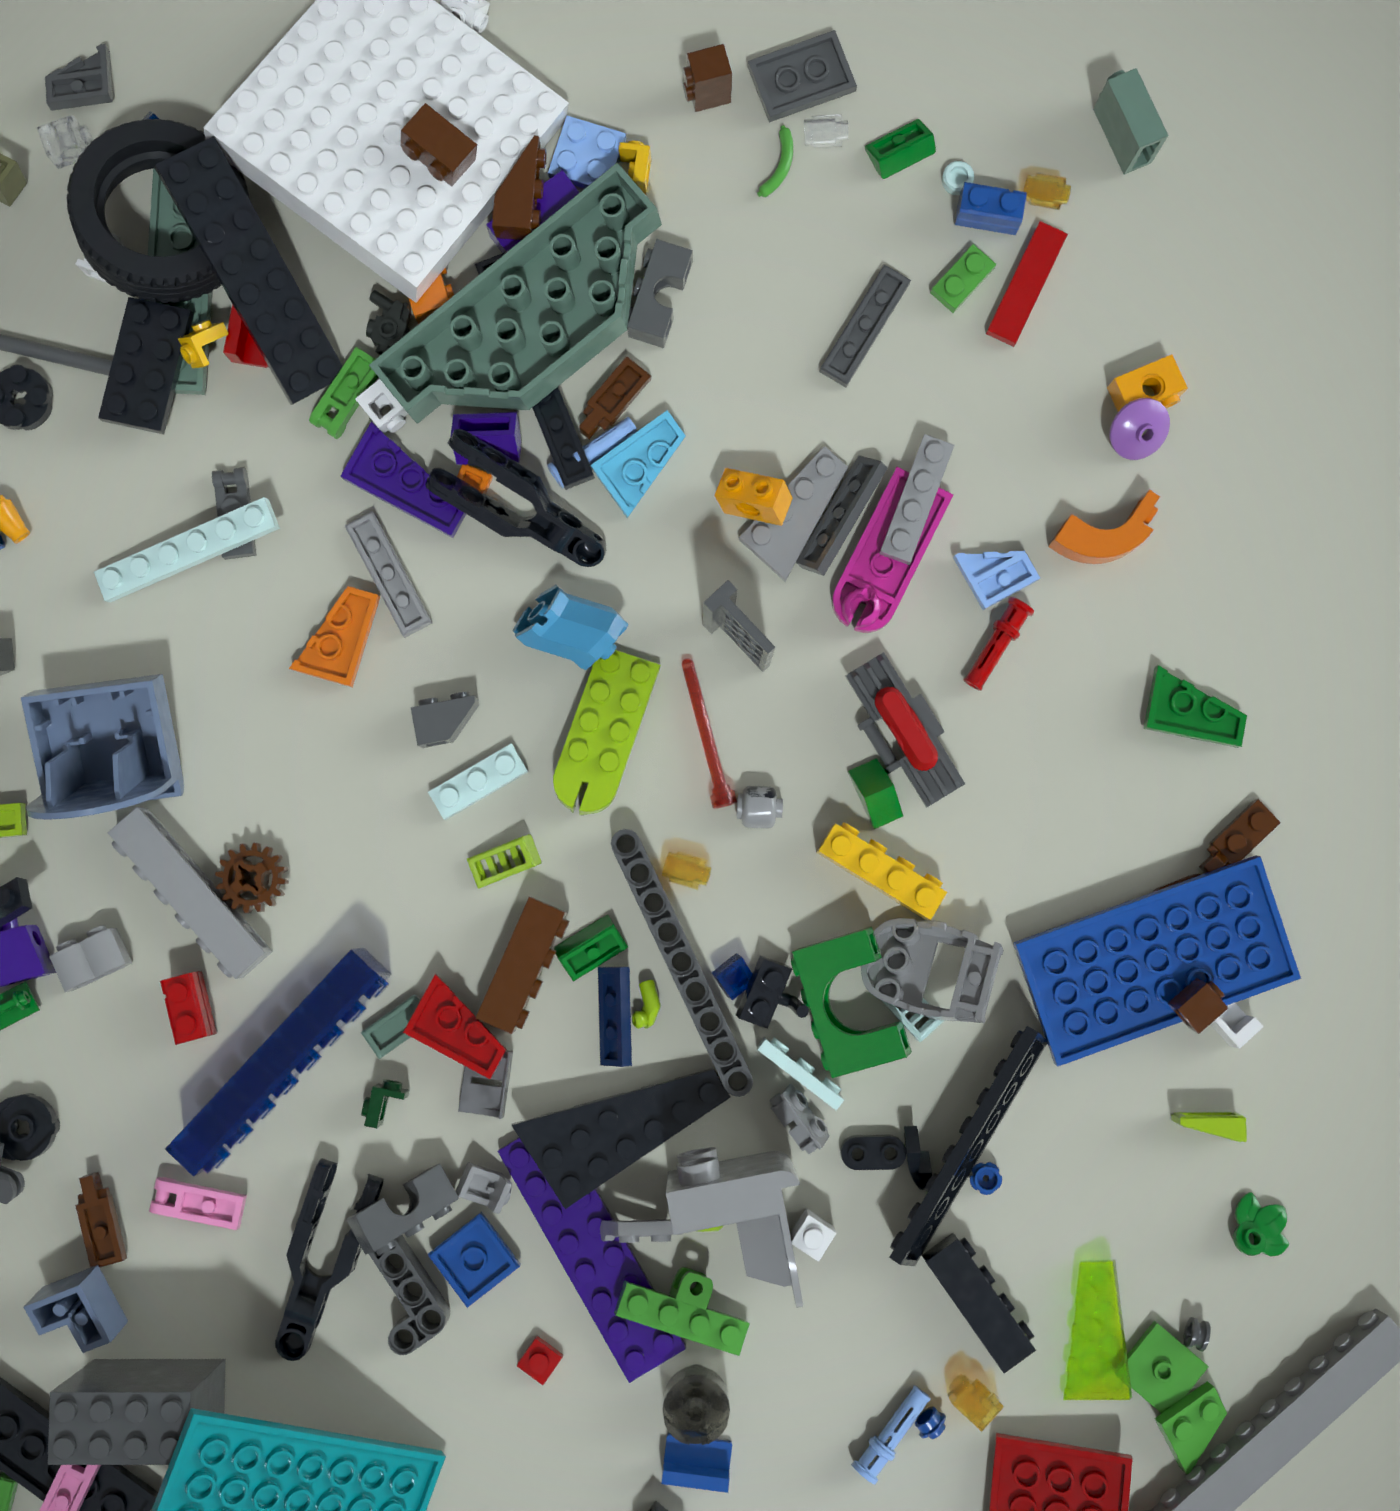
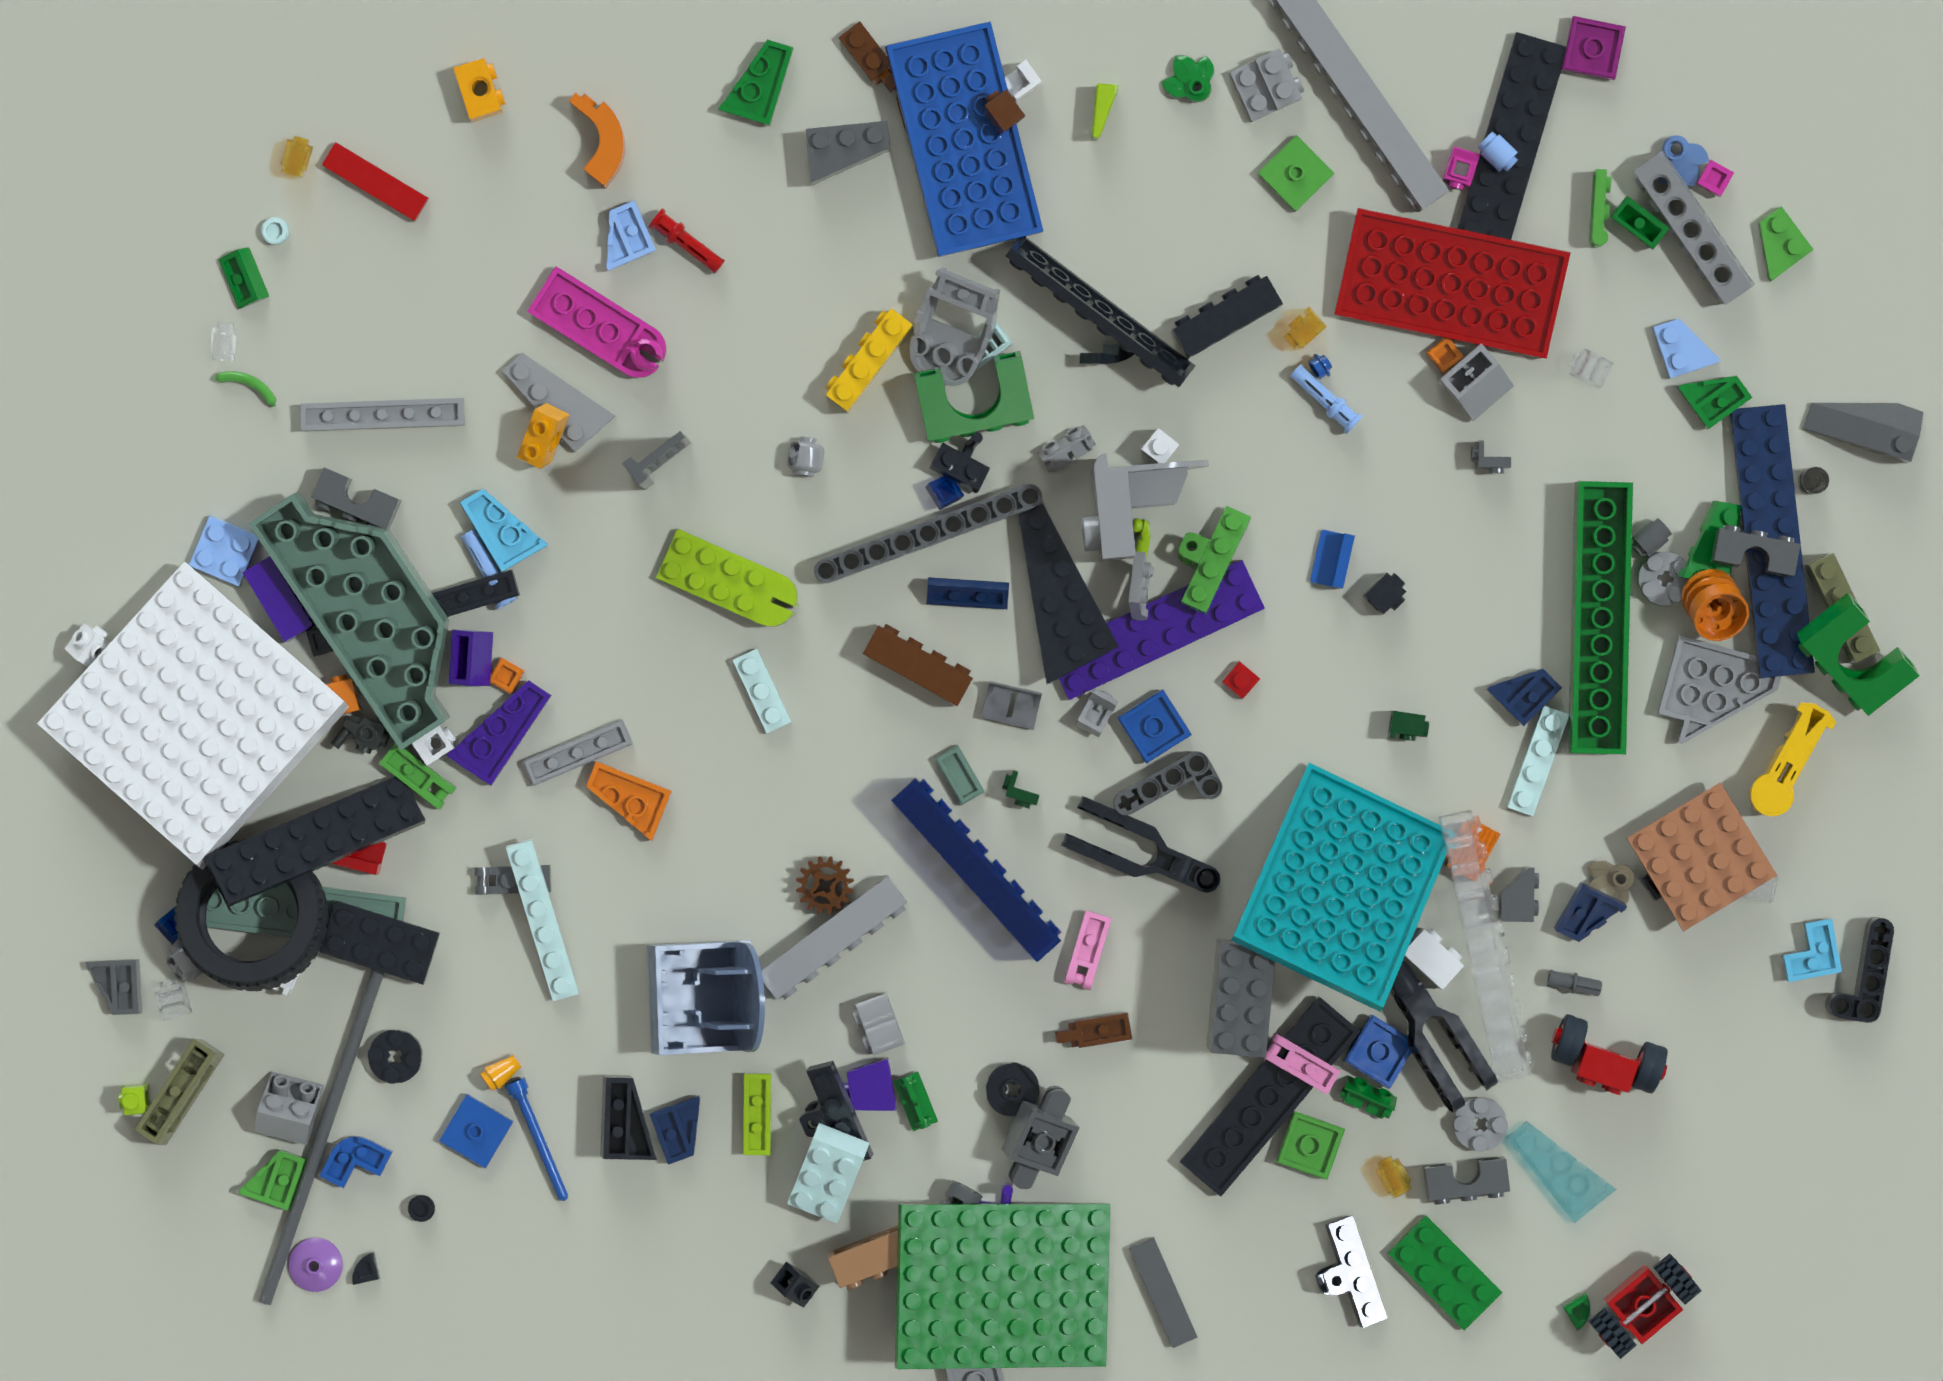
camera: 85 degrees left, 5 degrees up
(82, 1304) = (1156, 1044): sand blue brick -> none
(188, 1007) = (927, 944): red brick -> none
(202, 334) = (363, 894): yellow bracket -> none
(428, 1196) = (1098, 759): dark grey arch -> none
(438, 145) = (226, 672): reddish brown brick -> none
(442, 721) = (708, 715): dark grey slope -> none
(453, 1030) = (966, 726): red wing -> none
(517, 197) = (270, 612): reddish brown slope -> none
(528, 849) = (826, 652): lime slope -> none
(549, 525) = (550, 612): black piece -> none
(570, 627) = (640, 600): dark azure brick -> none
(590, 947) = (909, 608): green slope -> none
(614, 397) = (442, 546): reddish brown hinge -> none
(639, 160) = (245, 507): yellow bracket -> none
(651, 1006) = (964, 563): lime arm -> none
(686, 870) = (852, 522): clear yellow brick -> none
(696, 1424) = (1300, 557): clear smoke brick -> none
(708, 78) = (172, 439): reddish brown brick -> none
(721, 793) = (791, 486): clear red piece -> none
(760, 315) = (382, 414): none -> light grey plate
(801, 1071) = (1027, 443): light aqua plate -> none
(802, 76) = (172, 357): dark grey plate -> none
(841, 515) = (564, 362): dark grey plate -> none
(865, 326) = (399, 325): dark grey tile -> none
(873, 1152) = (1099, 390): black plate -> none
(876, 793) = (803, 357): green slope -> none
(912, 726) = (749, 322): dark grey piece -> none
(916, 499) = (557, 297): light grey plate -> none
(963, 278) = (365, 236): bright green plate -> none
(989, 1186) = (1133, 293): blue plate -> none
(990, 208) = (308, 207): blue brick -> none
(1098, 1344) = (1270, 223): clear neon green wing -> none
(1130, 120) = (244, 80): sand green brick -> none
(1132, 422) = (506, 104): medium lavender dish -> none
(1132, 819) = (843, 147): none -> dark grey wedge
(1192, 1424) = (1341, 154): bright green wing -> none
(1197, 1334) = (1269, 141): dark grey bush -> none
(1265, 1324) = (1267, 84): none -> light grey plate

